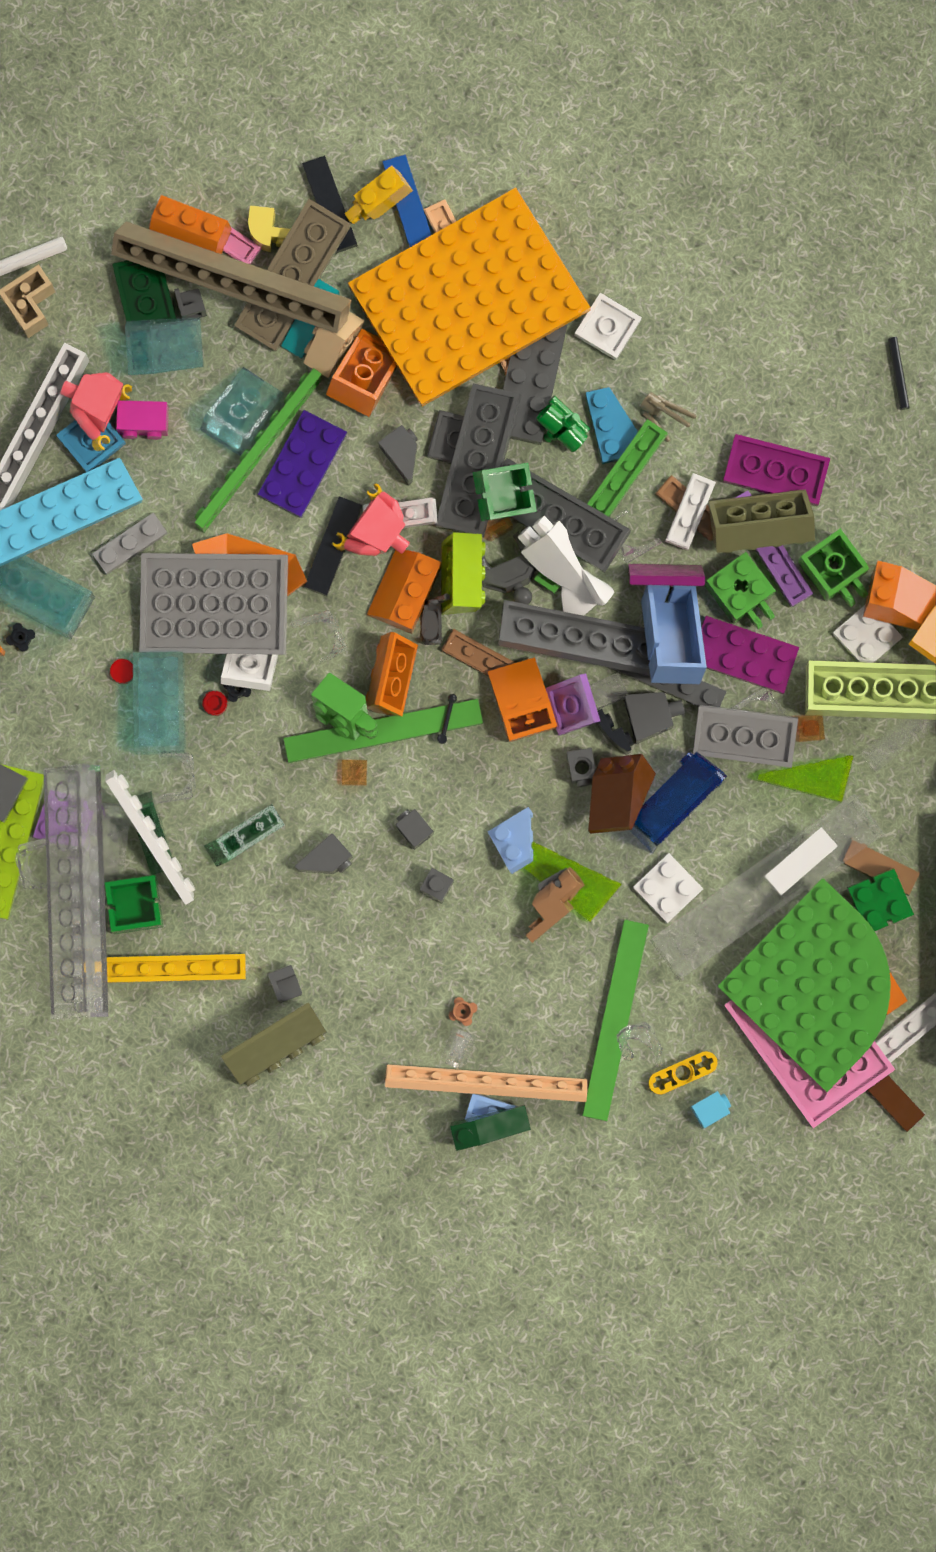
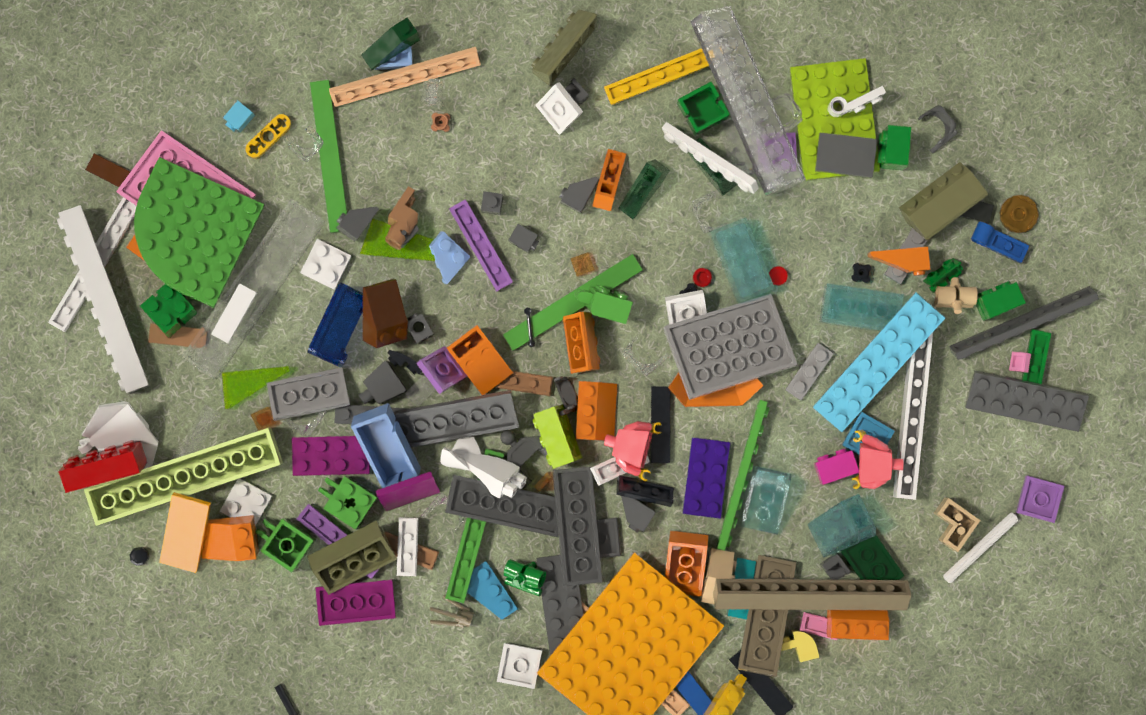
camera: 165 degrees right, 5 degrees up
(282, 862) = (609, 180): none -> orange slope
(310, 970) = (559, 108): none -> white plate
(381, 472) = (644, 491): none -> black tile
(469, 840) = (481, 245): none -> medium lavender plate
(502, 492) = (549, 504): piece -> none
(611, 923) = (355, 221): none -> dark grey slope

